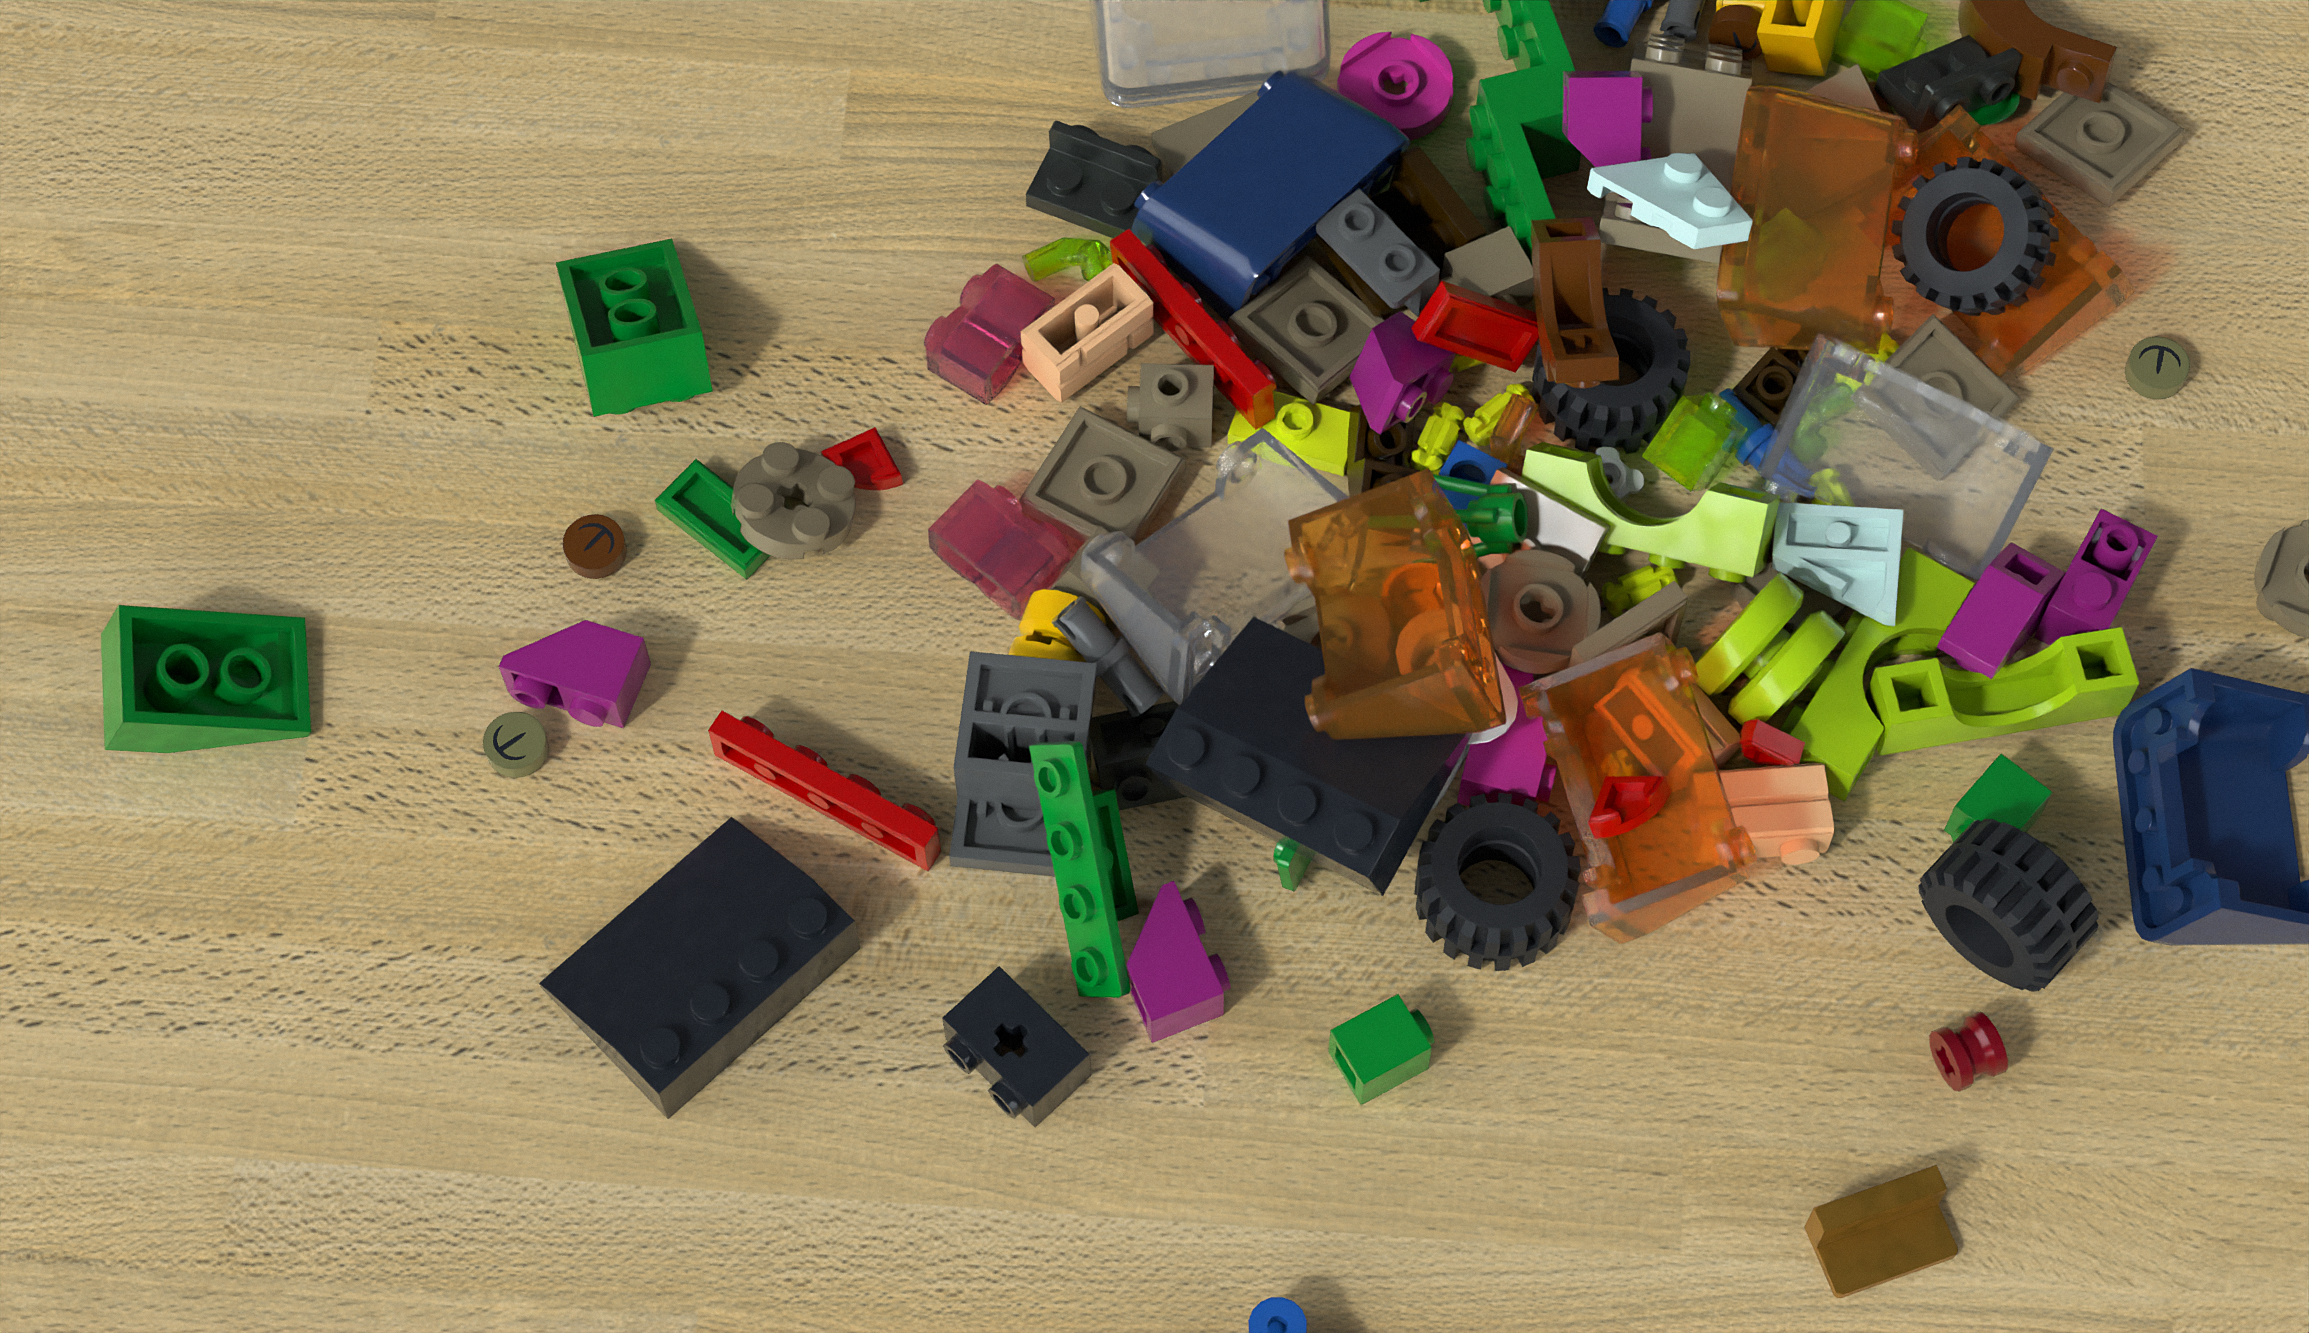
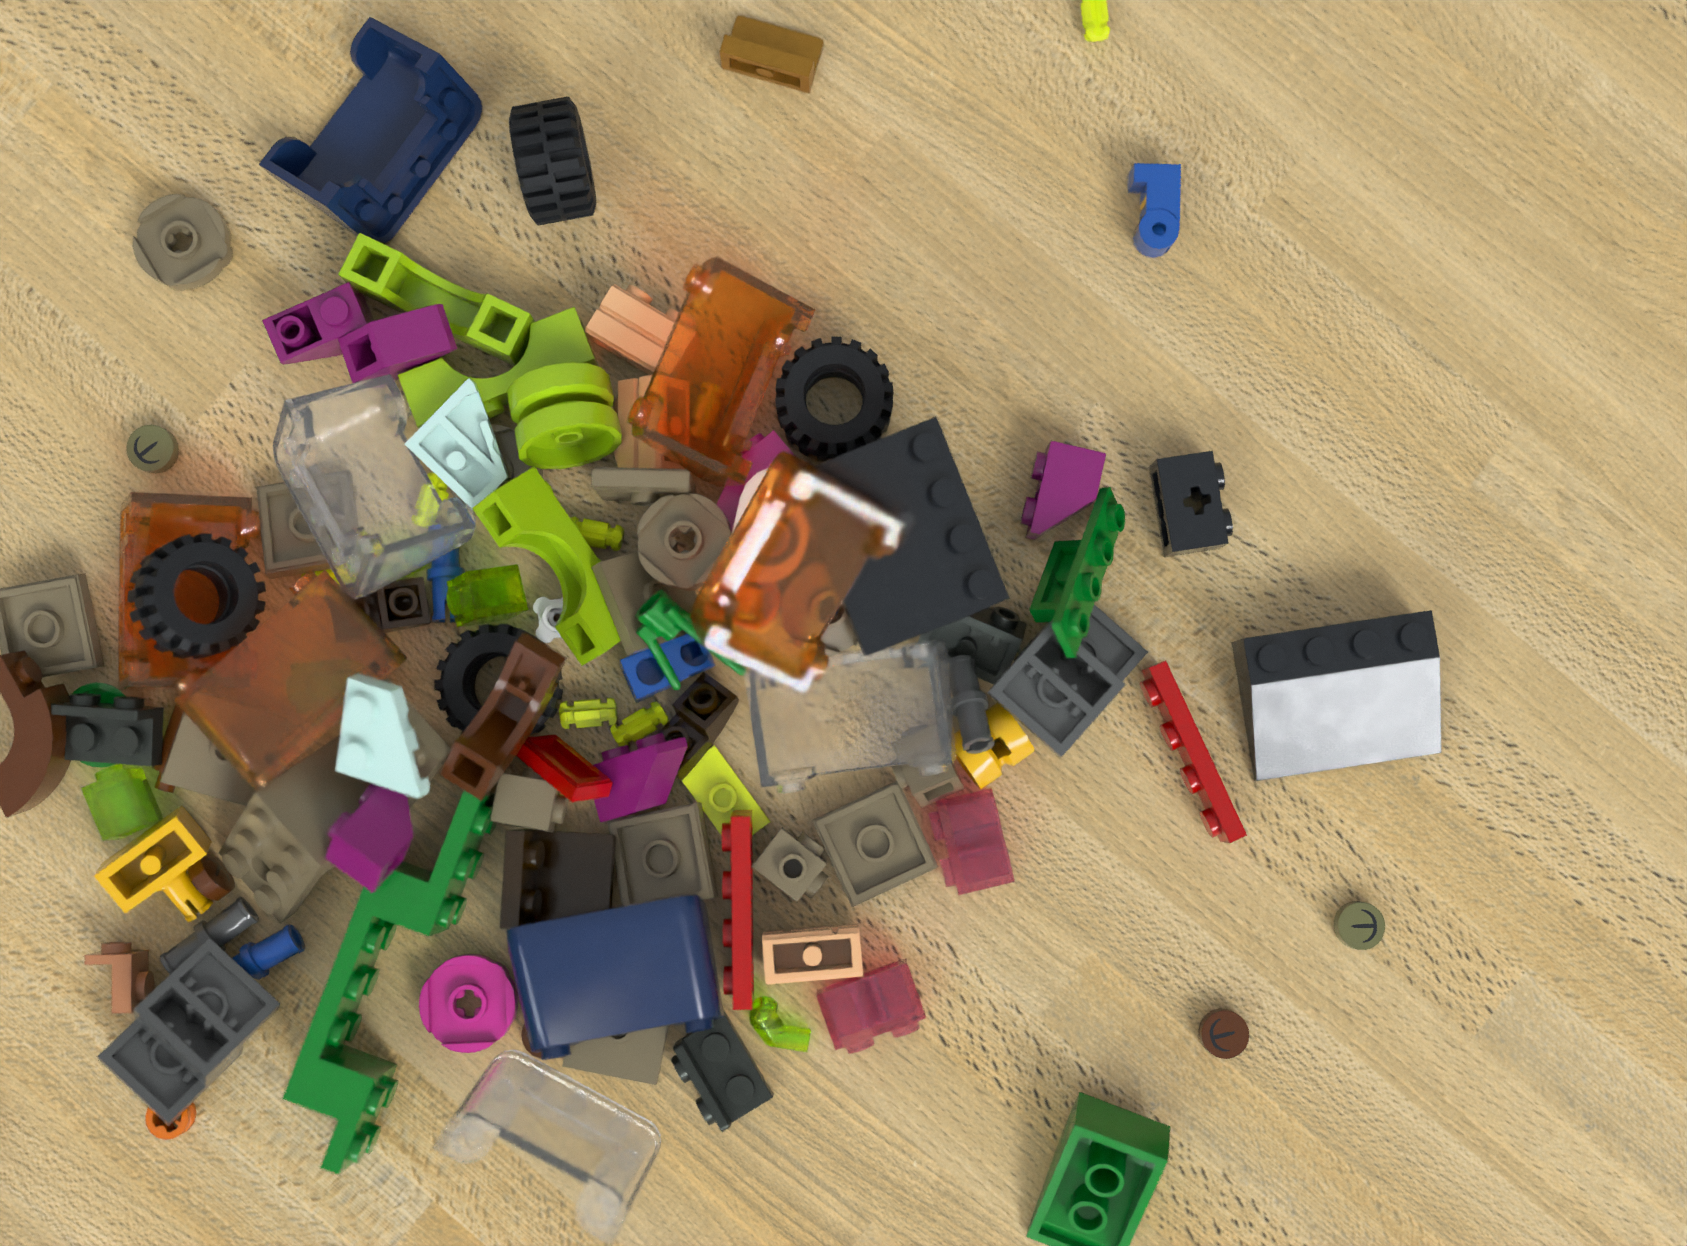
camera: 150 degrees left, 20 degrees up
(202, 679) = (1532, 1107): green slope -> none
(582, 670) = (1290, 942): magenta slope -> none
(702, 508) = (1130, 996): green tile -> none
(799, 474) = (1074, 996): dark tan plate -> none
(867, 461) = (1012, 973): red tile -> none
(1380, 252) = (592, 861): dark grey bracket -> none
(1381, 1048) = (975, 352): green brick -> none
(1510, 430) = (597, 688): clear orange arm -> none
(1627, 803) = (729, 377): red tile -> none
(1769, 745) = (610, 358): red tile -> none
(1968, 1051) = (640, 112): dark red wheel -> none
(2000, 794) = (503, 236): green brick -> none

